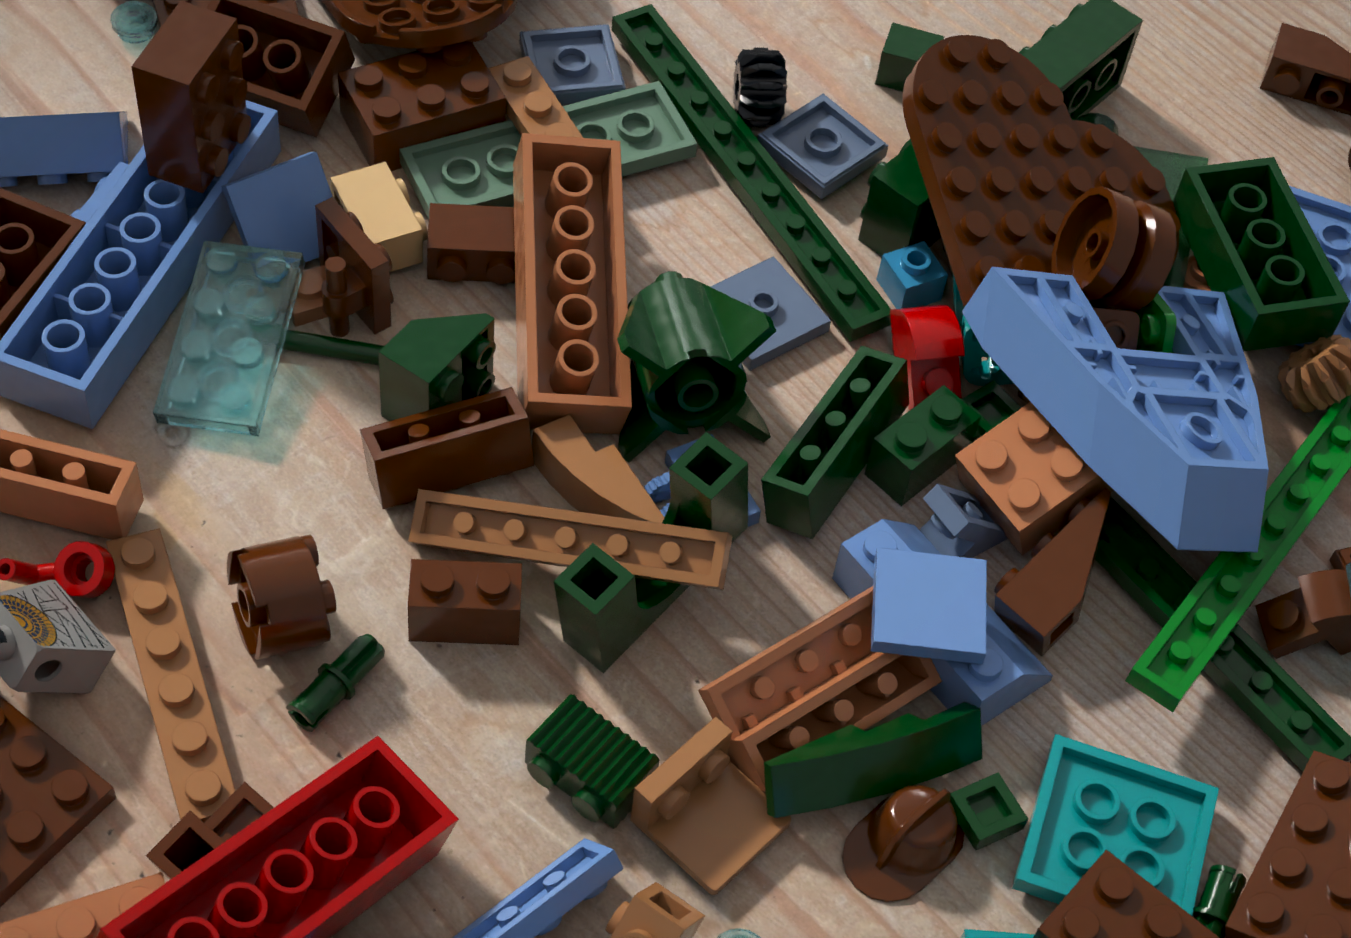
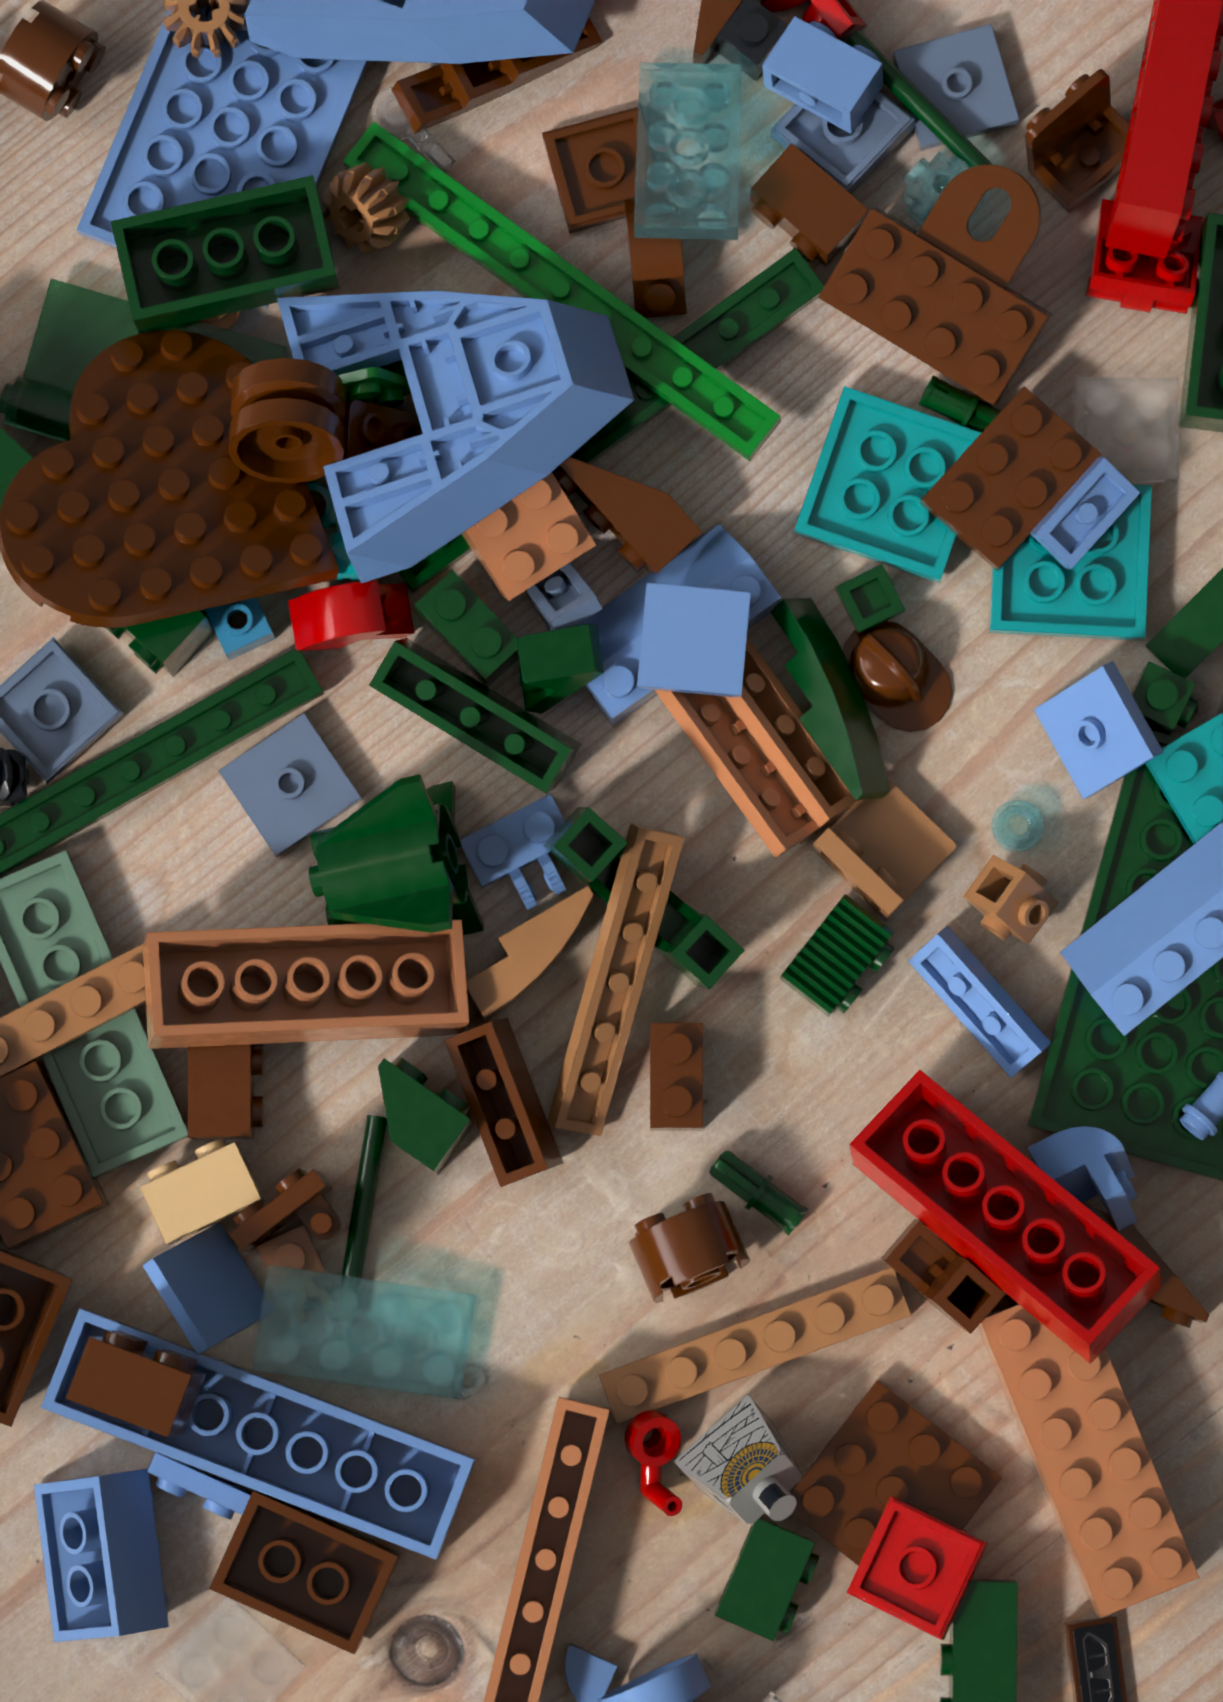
camera: 80 degrees left, 30 degrees up
(894, 491) = (557, 664): none -> dark green slope

